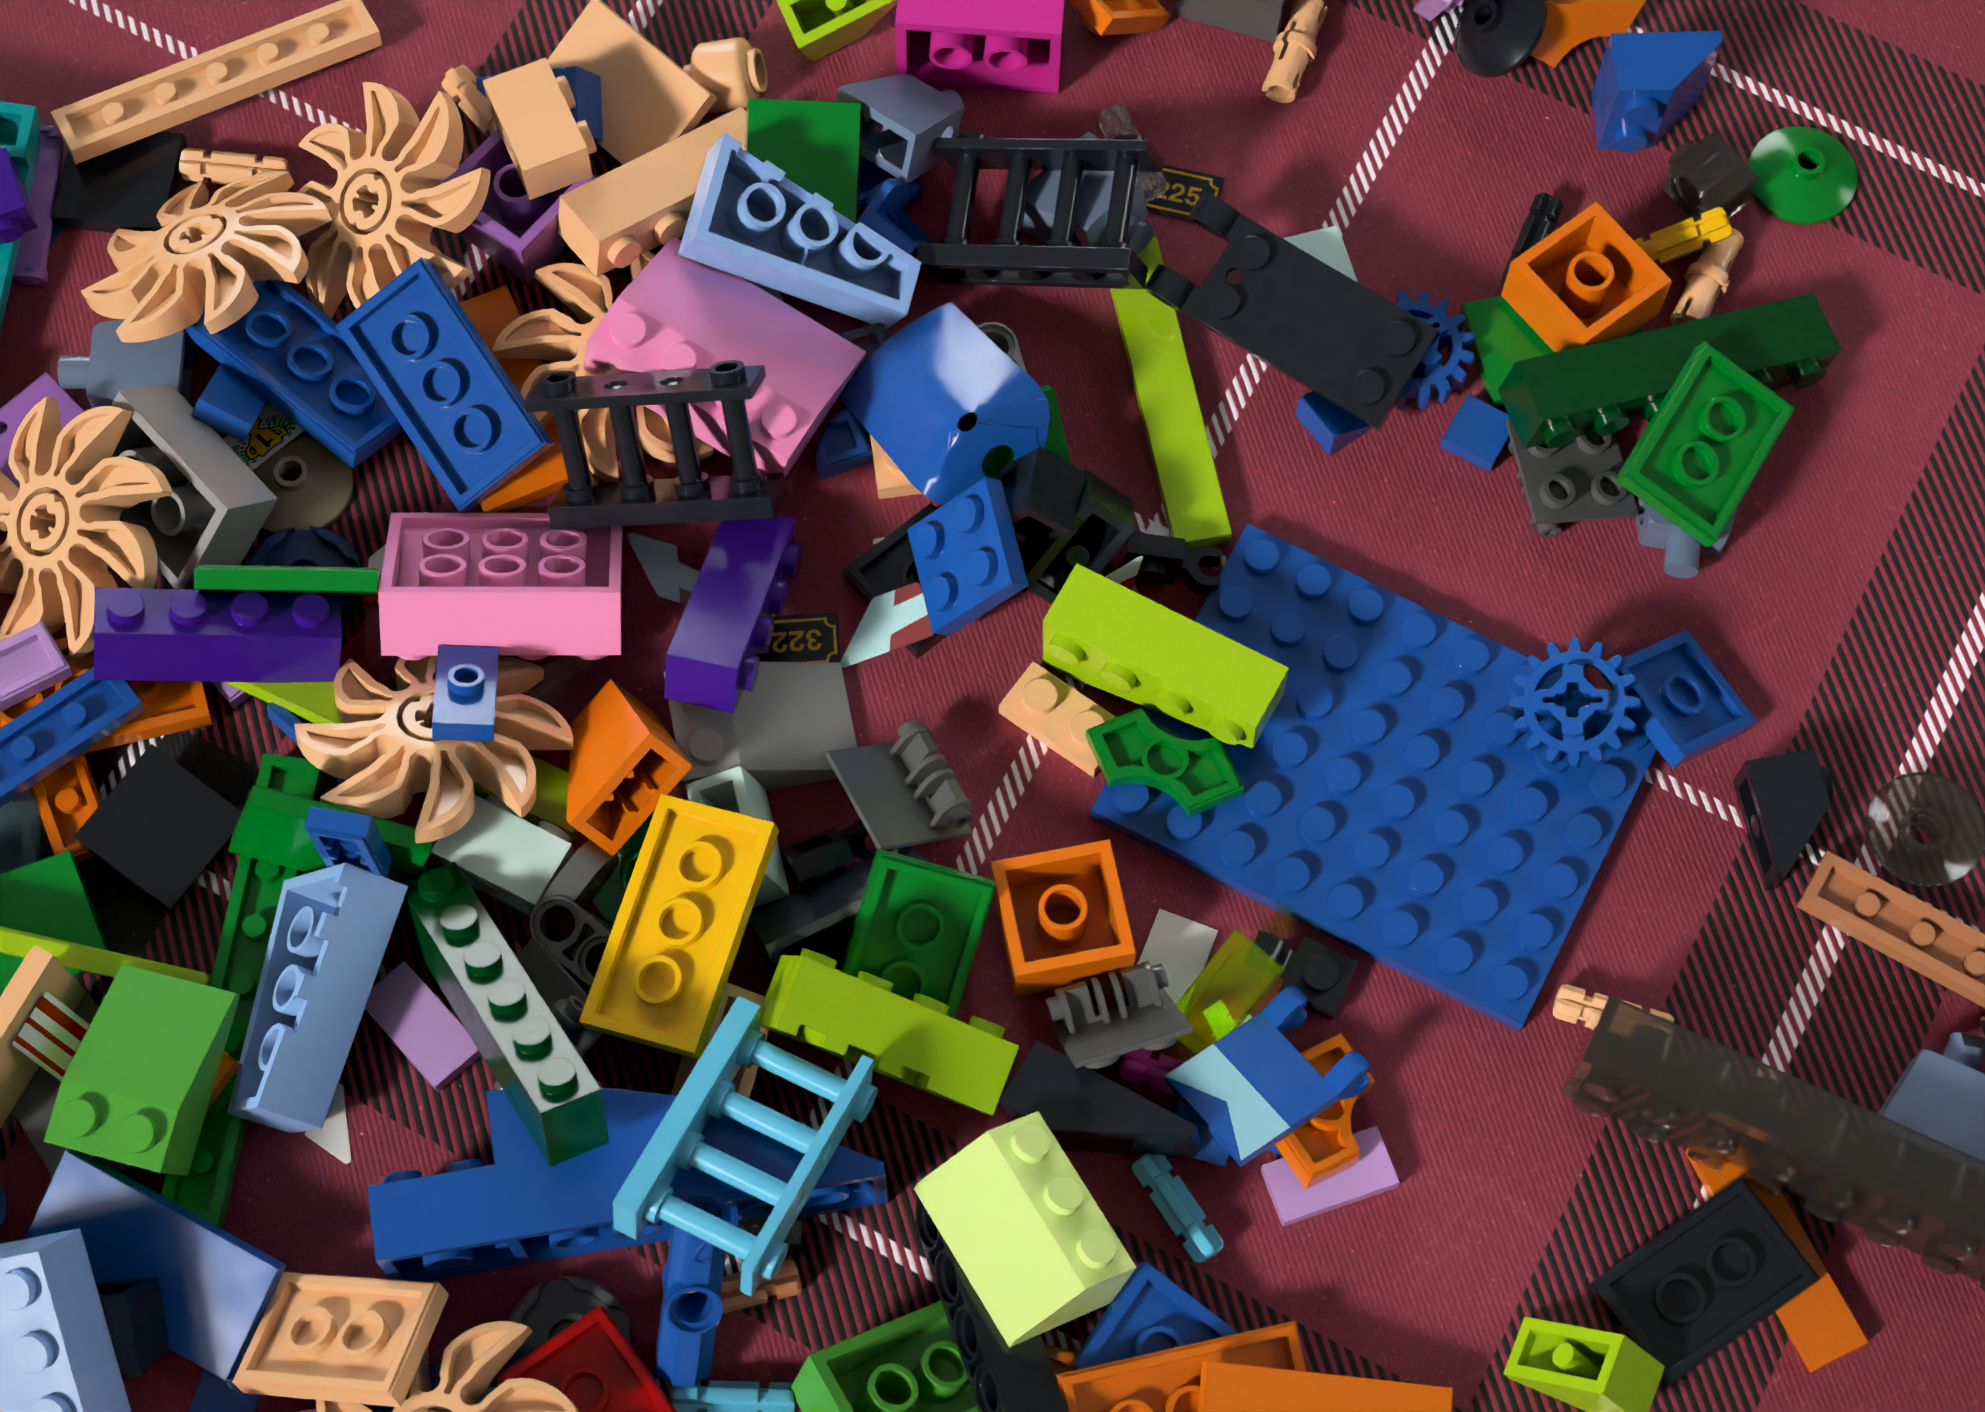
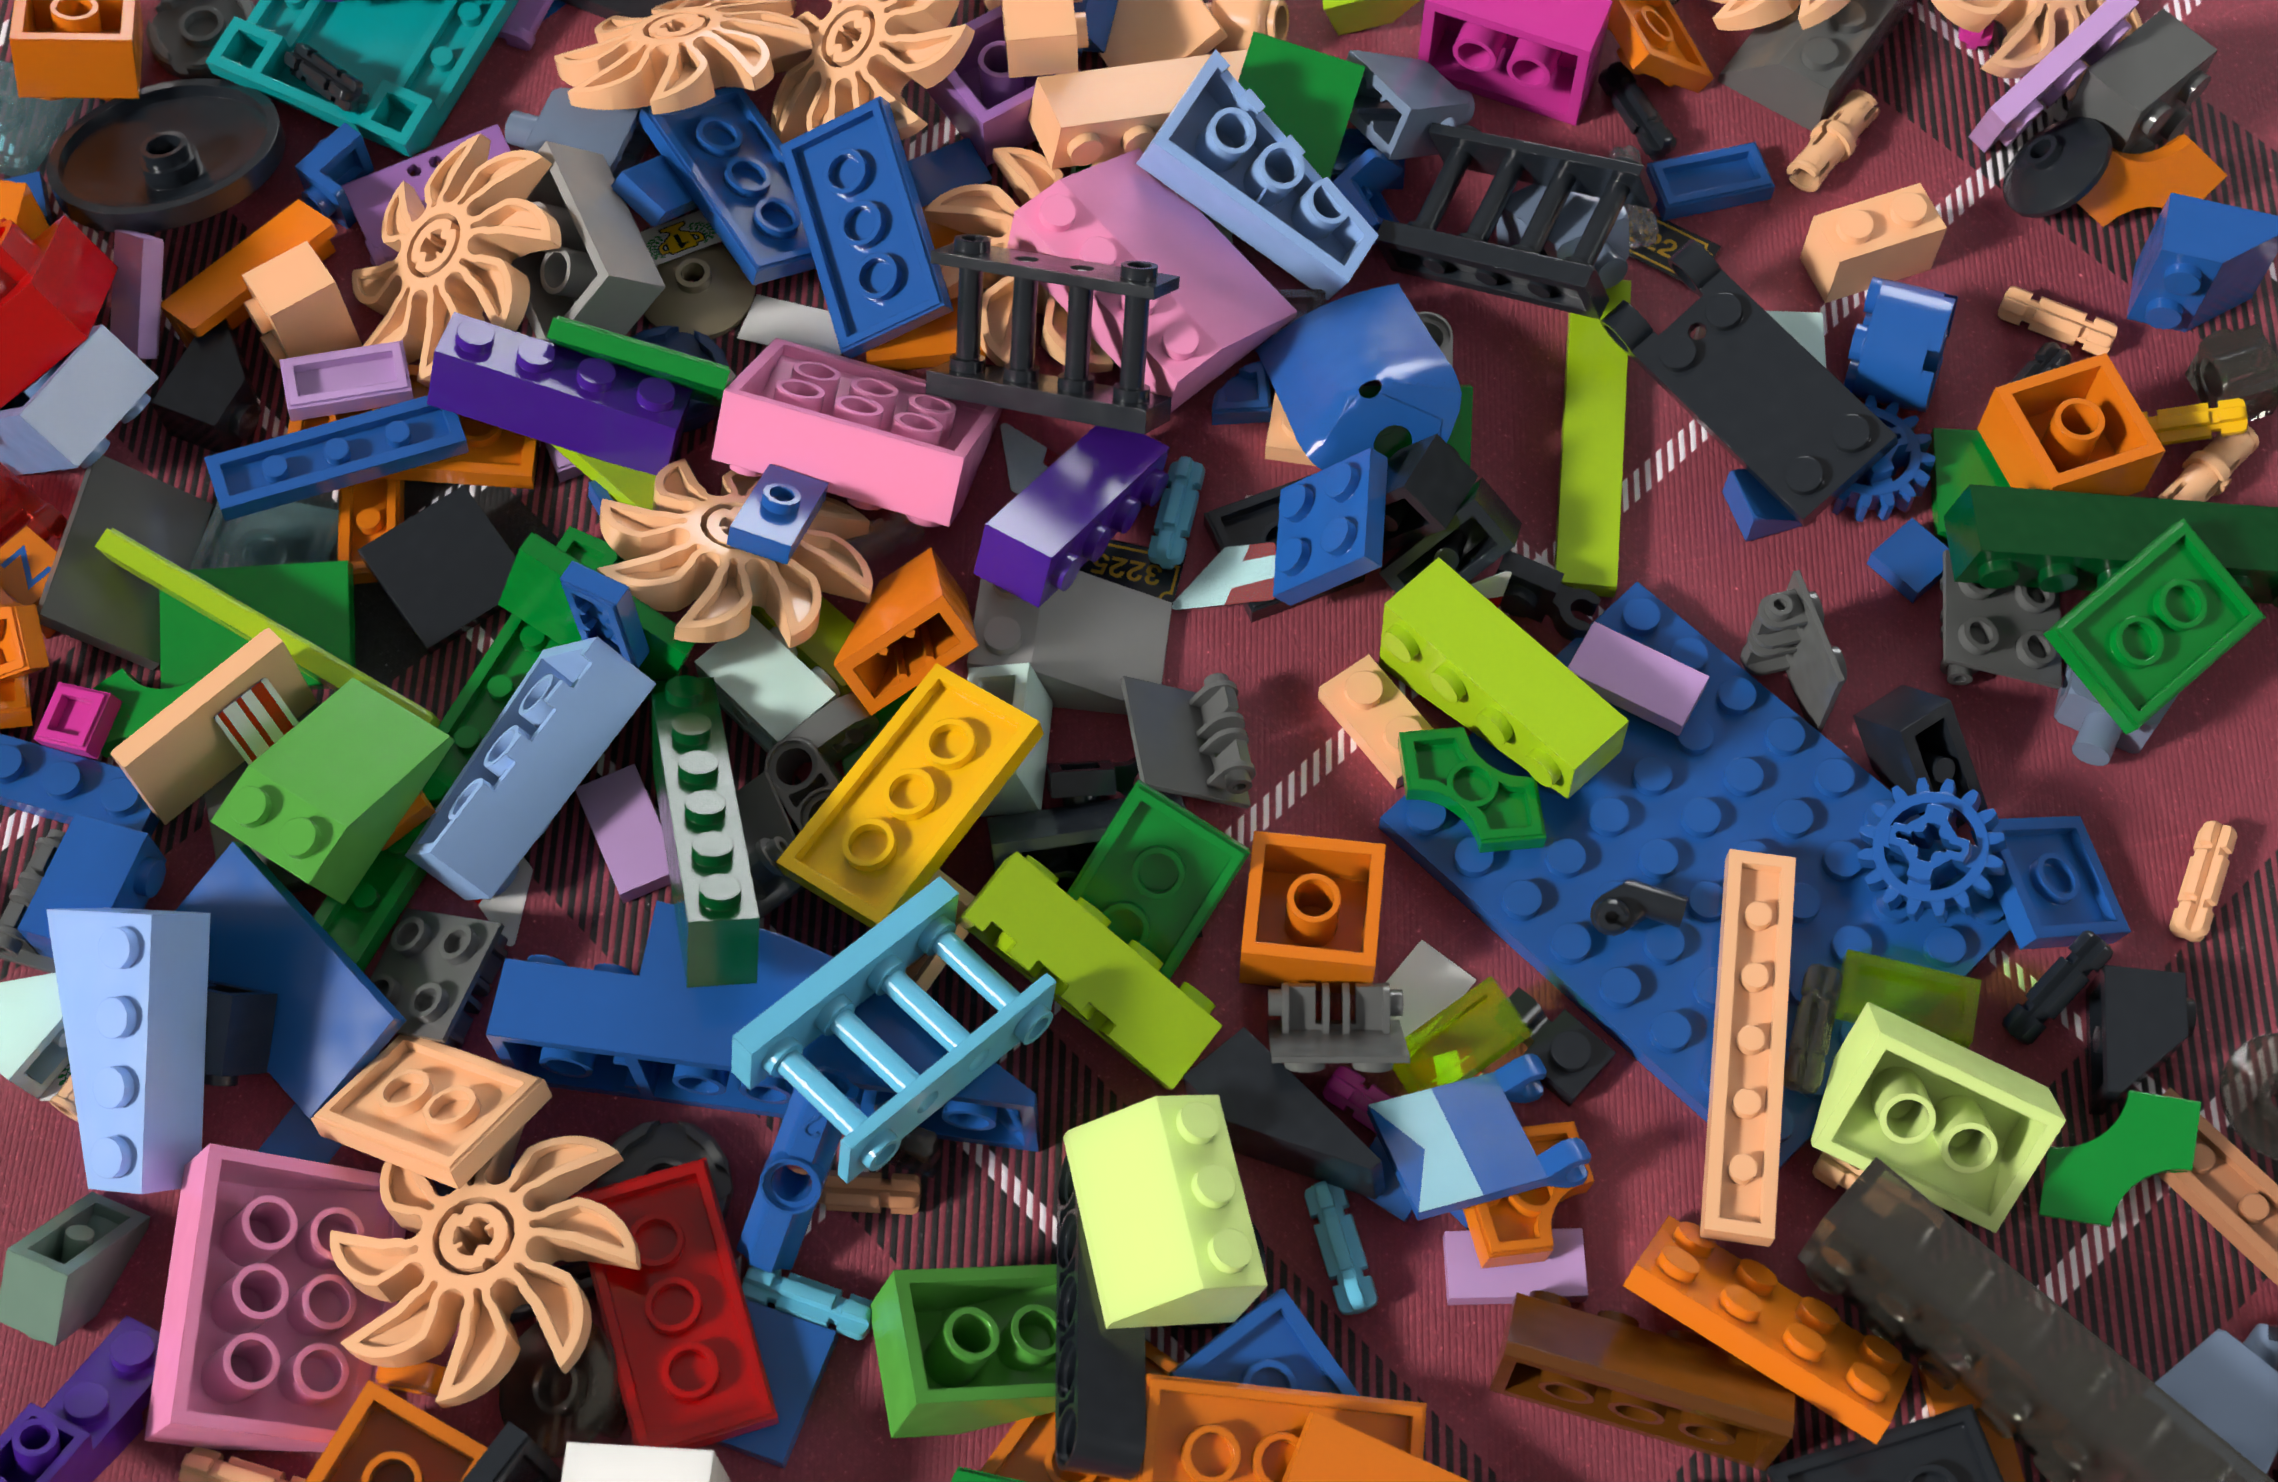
camera: 20 degrees right, 5 degrees down
(292, 1209) = (434, 969): none -> dark grey hinge
(397, 491) = (791, 322): none -> white sticker
(496, 301) = (947, 169): none -> blue sticker
(818, 576) = (1176, 513): none -> medium azure axle
(1111, 67) = (1637, 111): none -> black axle
(1196, 117) = (1710, 181): none -> blue tile
(1277, 617) = (1638, 678): none -> lavender tile
(1334, 826) = (1633, 903): none -> black arm
(1359, 141) = (1872, 238): none -> light nougat brick
(1399, 539) = (1792, 639): none -> dark grey hinge
(1413, 236) = (1900, 344): none -> blue brick
(1469, 1241) = (1641, 1380): none -> reddish brown slope
(1472, 925) = (1748, 1049): none -> light nougat plate
(1520, 891) = (1812, 1029): none -> clear smoke axle
(1534, 606) = (1917, 737): none -> black slope
(1540, 170) = (2057, 321): none -> light nougat axle
(1560, 1163) = (1772, 1327): none -> orange plate
(1590, 840) = (1919, 994): none -> clear neon green tile
(1643, 937) = (1935, 1116): none -> yellowish green slope
(1711, 791) = (2057, 987): none -> black axle
(1804, 656) = (2203, 881): none -> light nougat axle
(1821, 903) = (2147, 1139): none -> green tile

